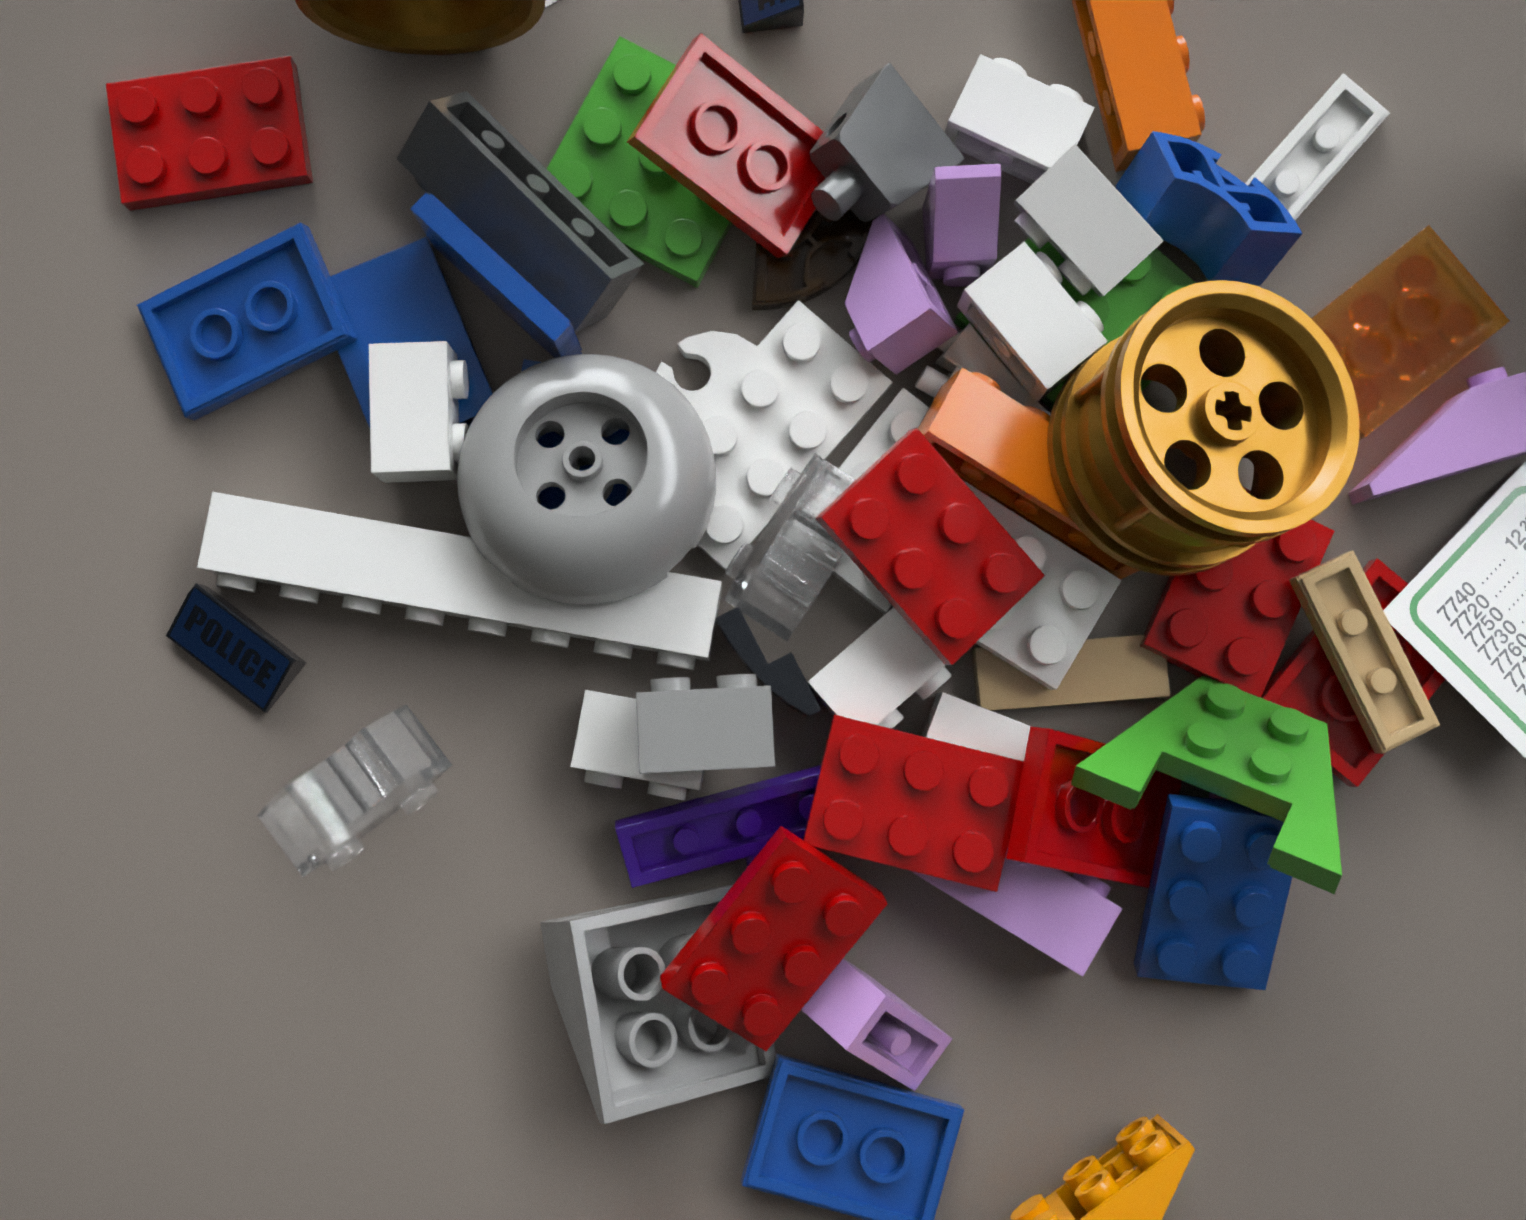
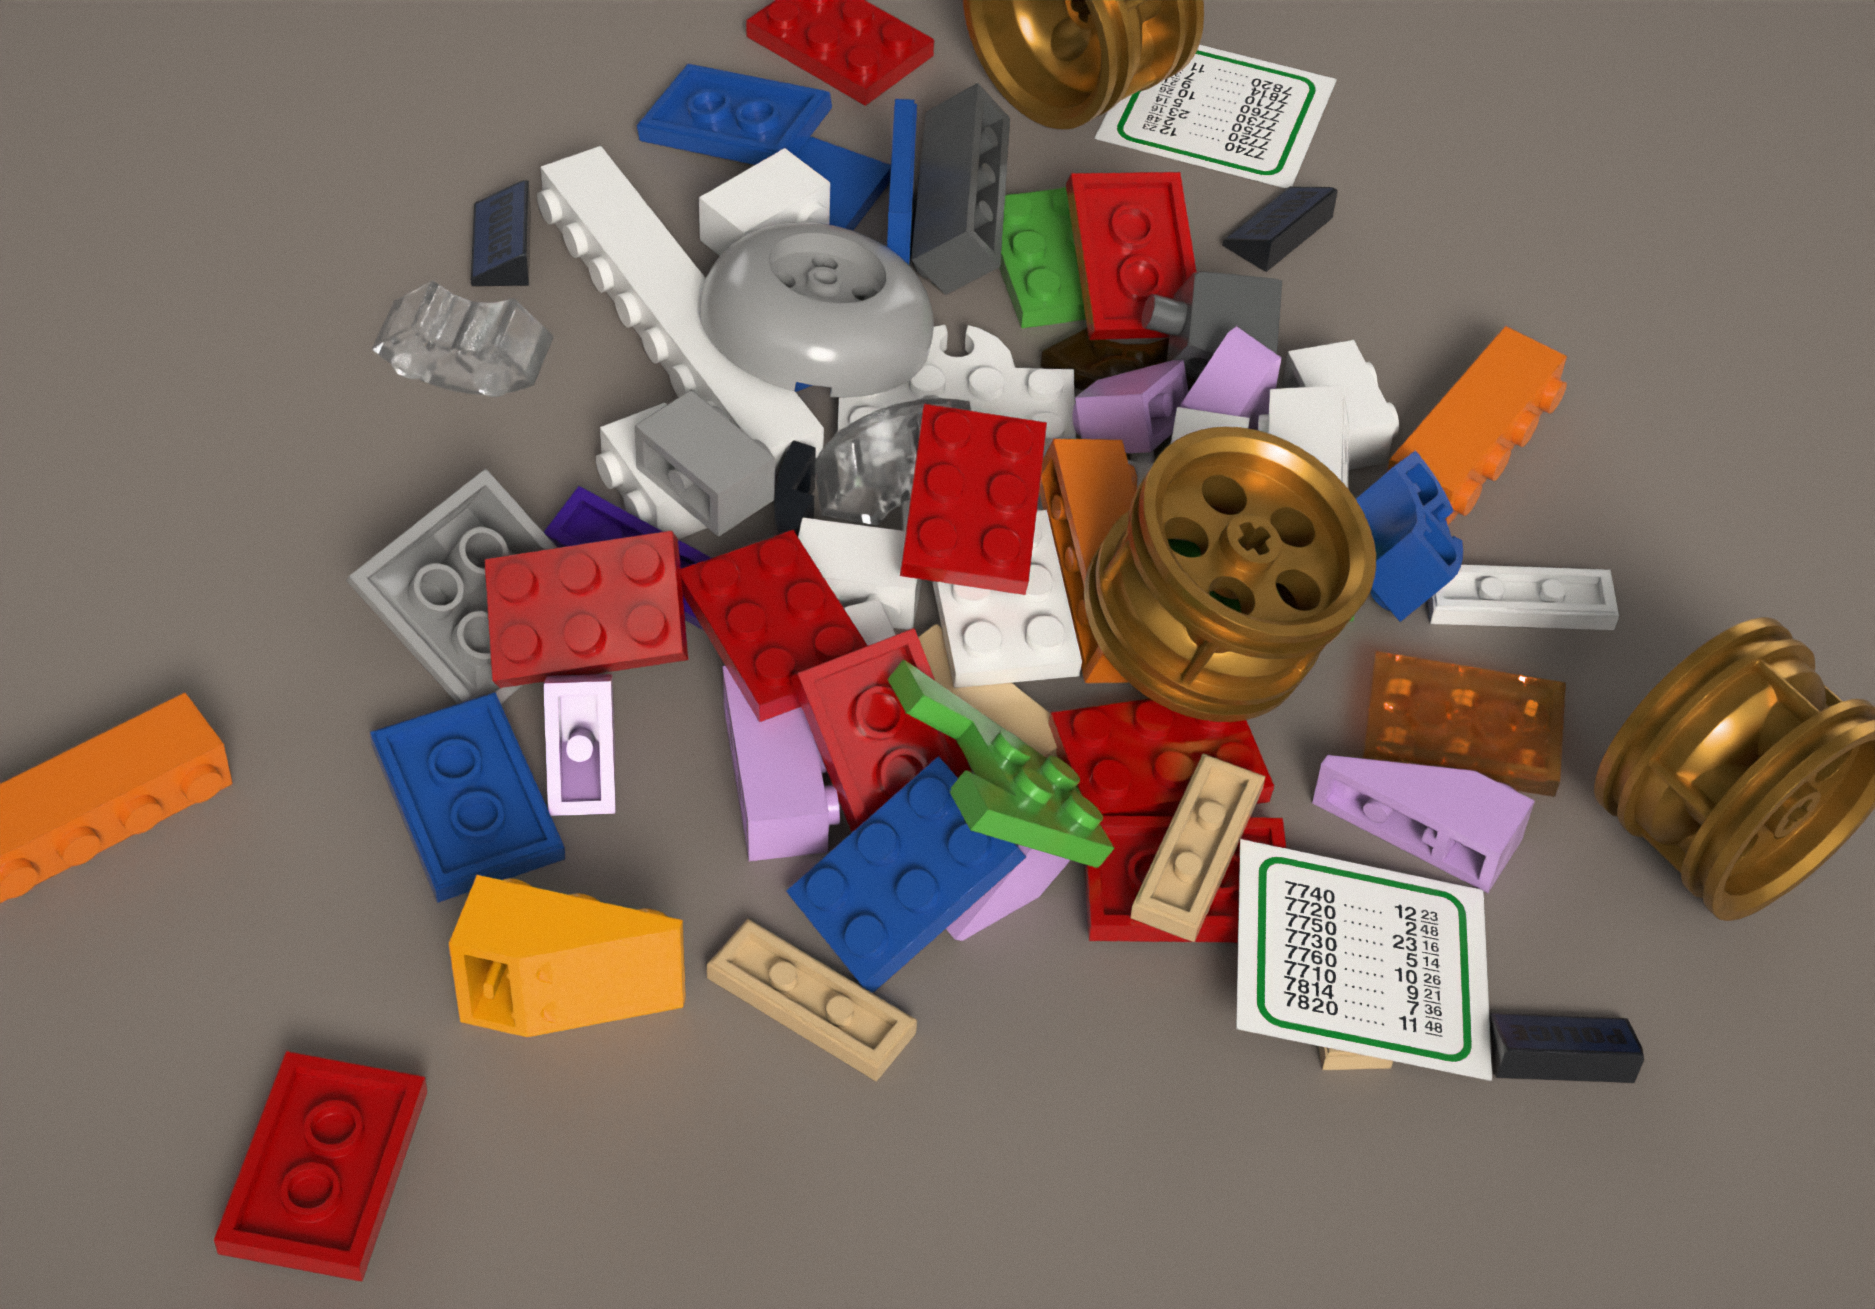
camera: 50 degrees right, 35 degrees down
(1238, 1030) = (812, 999): none -> tan tile

